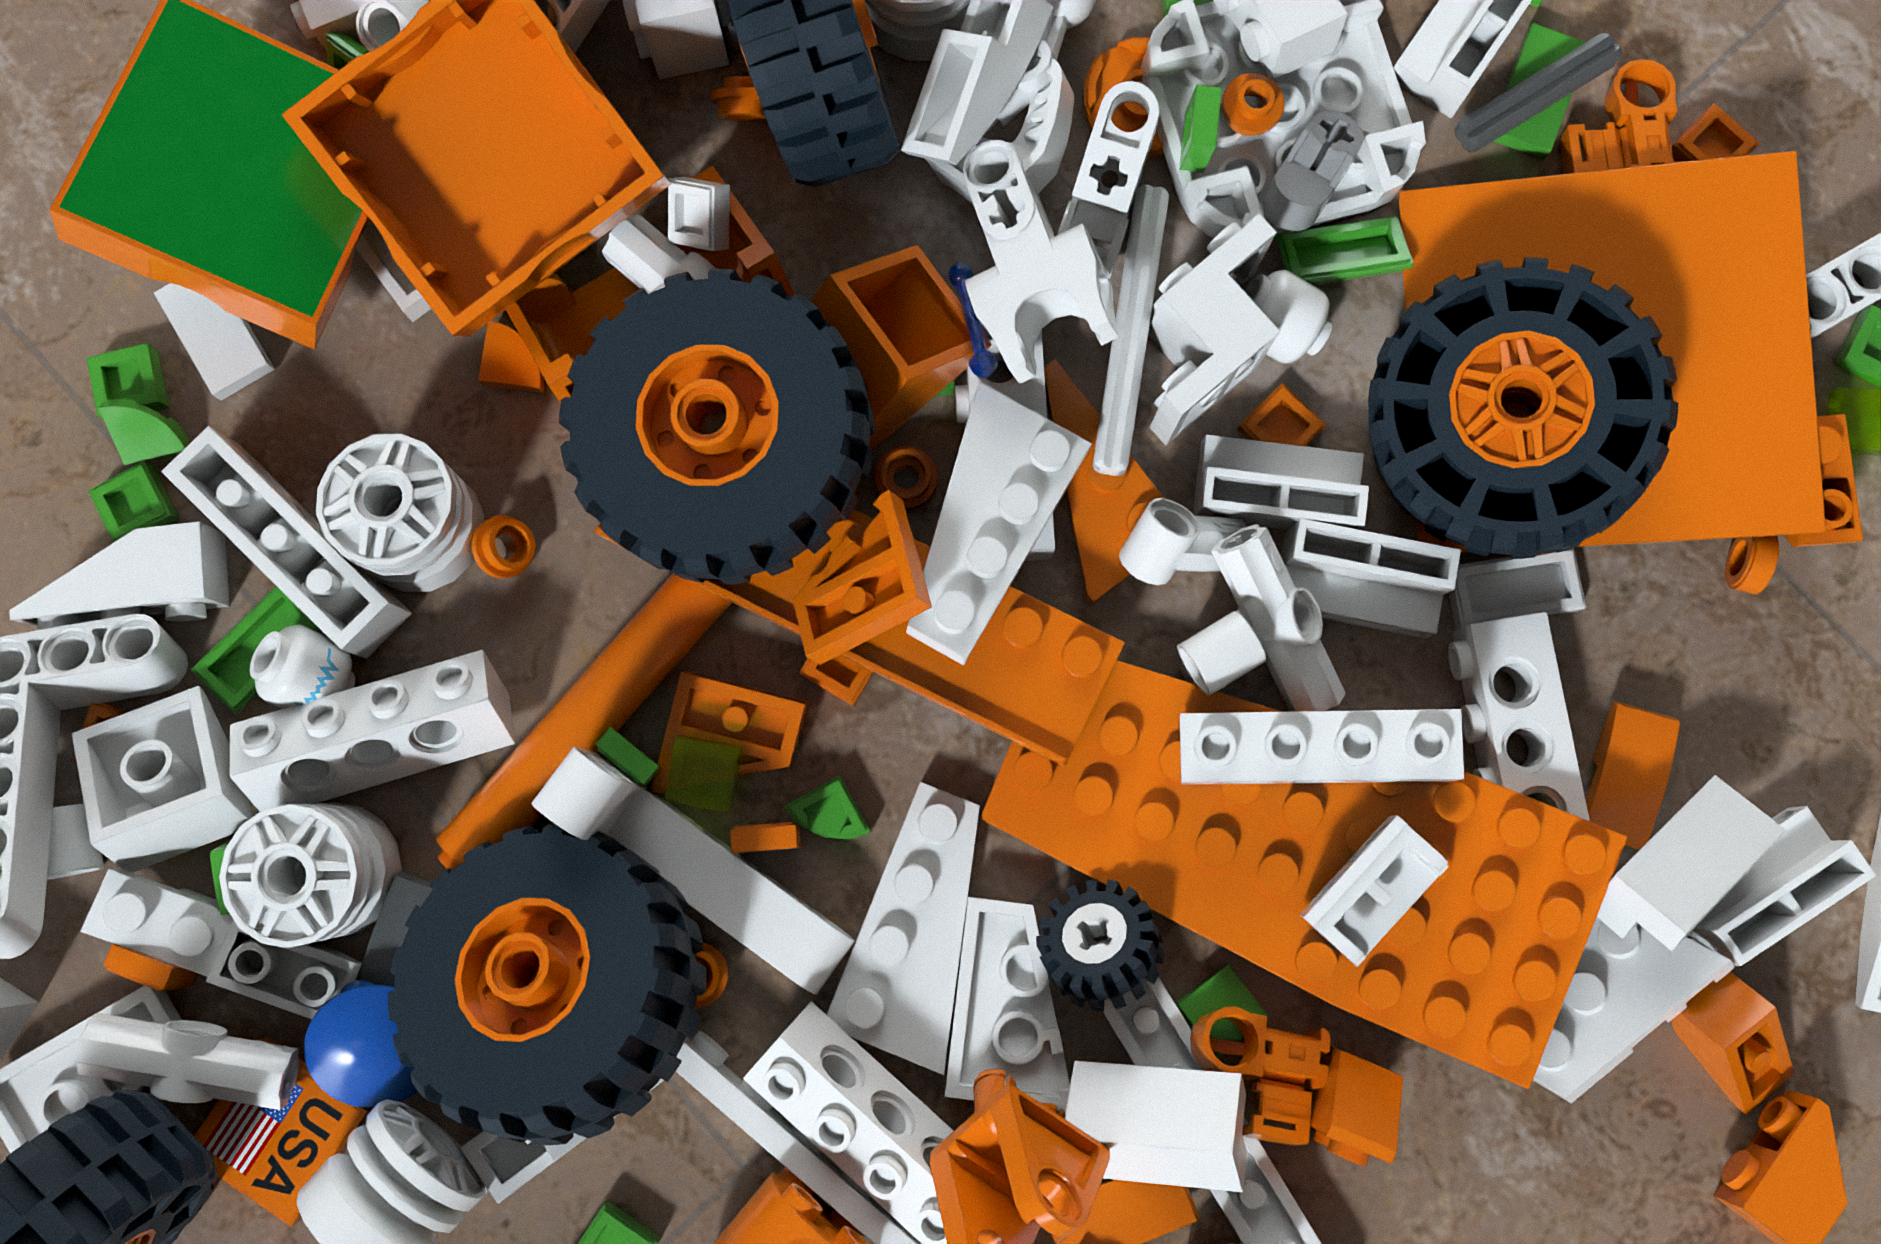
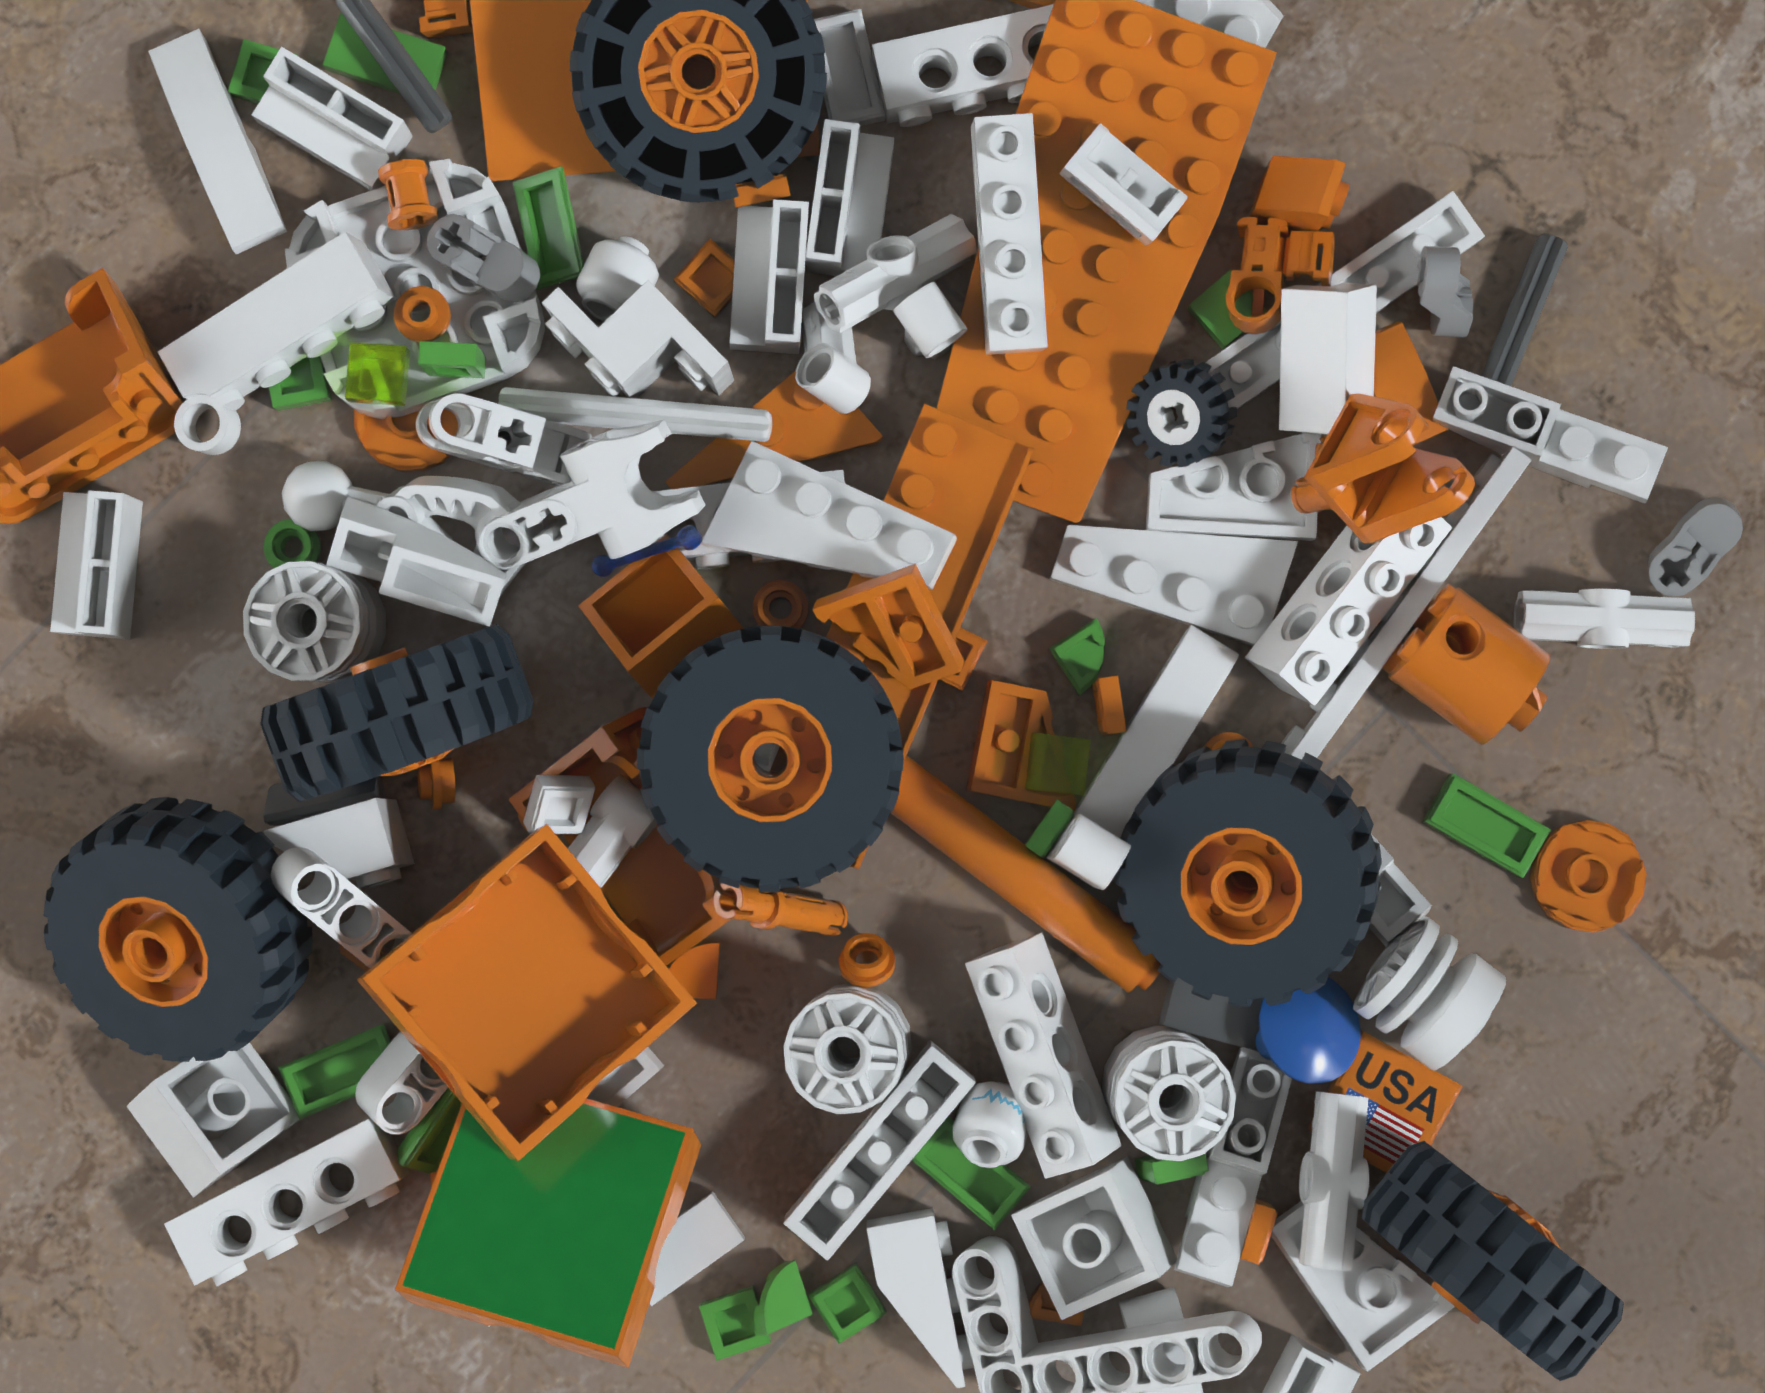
camera: 95 degrees left, 5 degrees up
(556, 486) = (782, 909): none -> orange pin
(1187, 47) = (377, 374): none -> clear neon green tile
(1381, 496) = (772, 190): none -> orange tile
(1387, 95) = (407, 194): none -> orange bush

